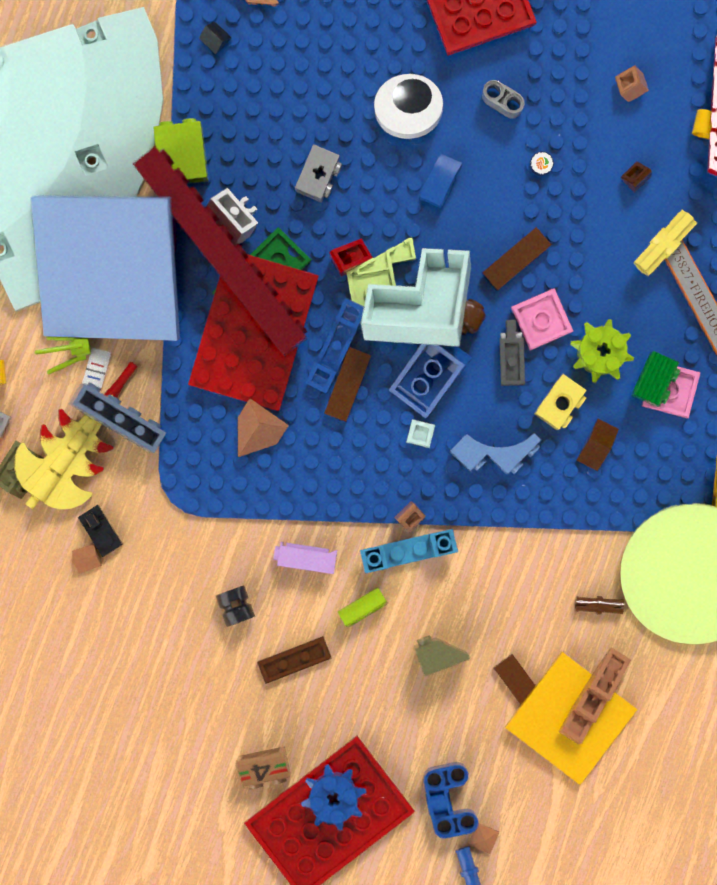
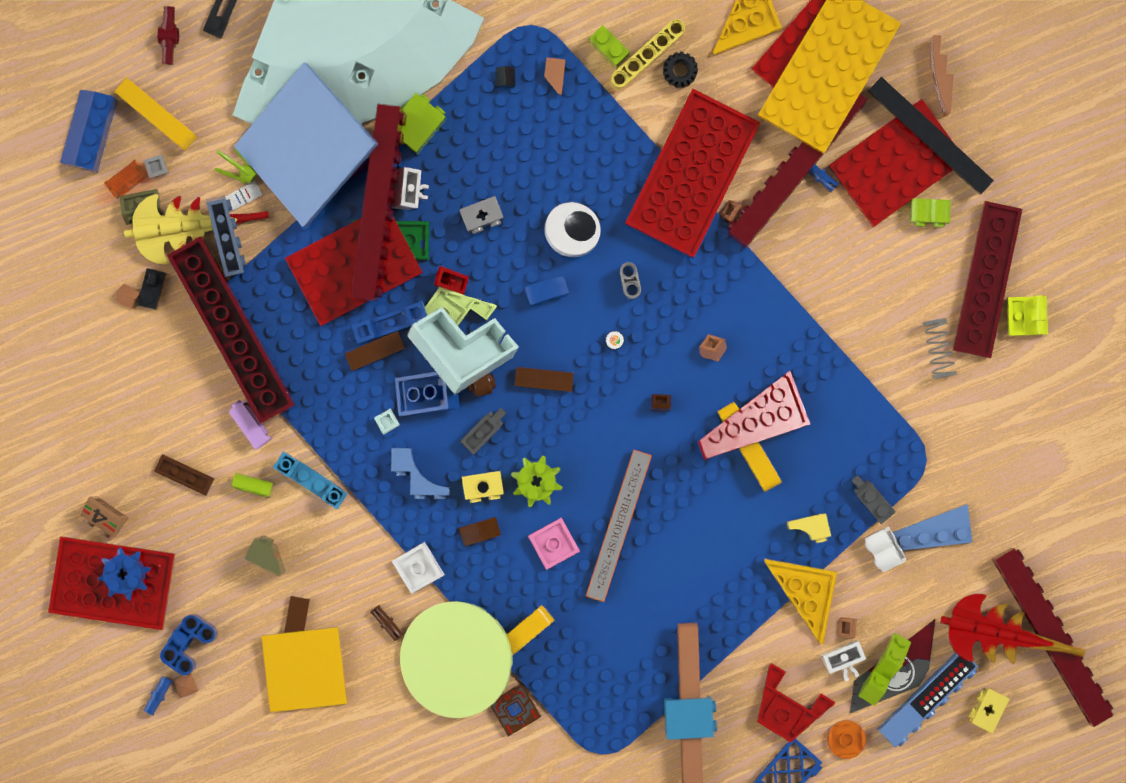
camera: 40 degrees right, 0 degrees up
(207, 493) = (231, 330): none -> dark red brick
(239, 613) = (179, 416): black wheel -> none
(258, 429) = (298, 323): nougat slope -> none
(410, 516) = (331, 462): nougat slope -> none
(542, 319) = (522, 428): bright pink tile -> none
(577, 530) = (418, 567): none -> white tile
(595, 695) = (329, 670): nougat slope -> none
(655, 379) = (549, 528): green brick -> none
(665, 242) = (635, 457): light yellow piece -> none

